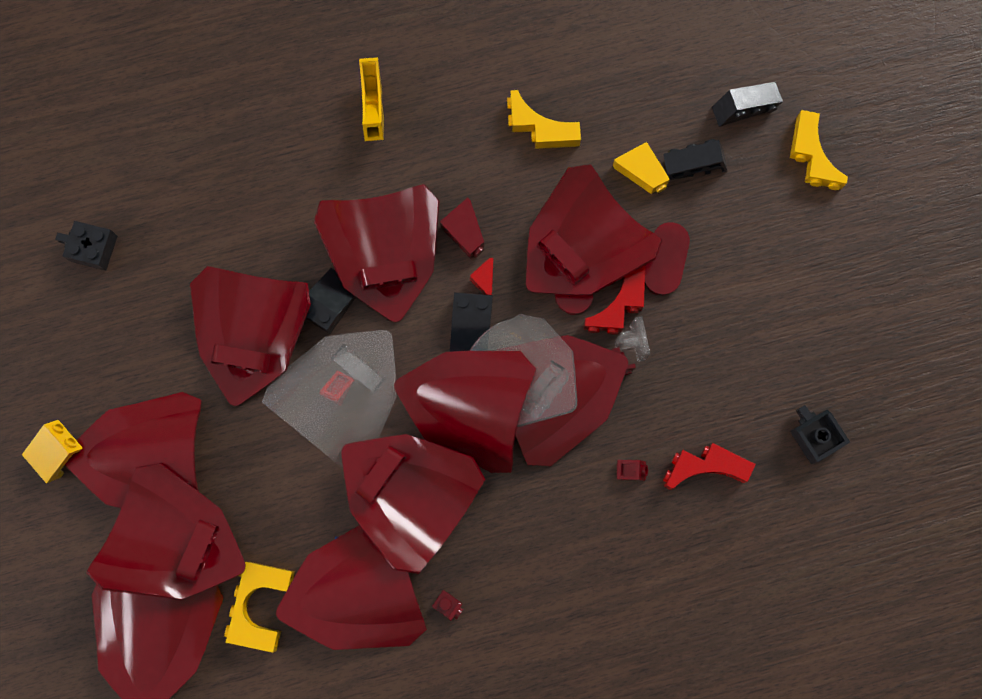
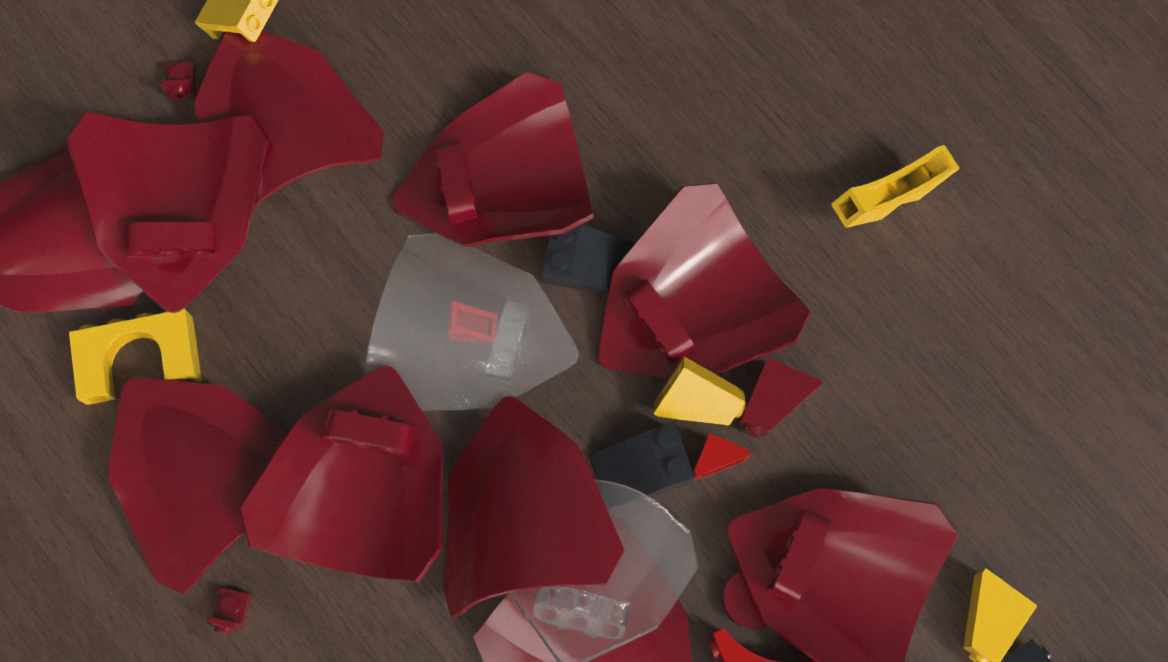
camera: 65 degrees right, 5 degrees down
(81, 510) = (179, 80): none -> dark red bracket
(444, 272) = (699, 396): none -> yellow slope
(544, 132) = (976, 450): yellow arch -> none

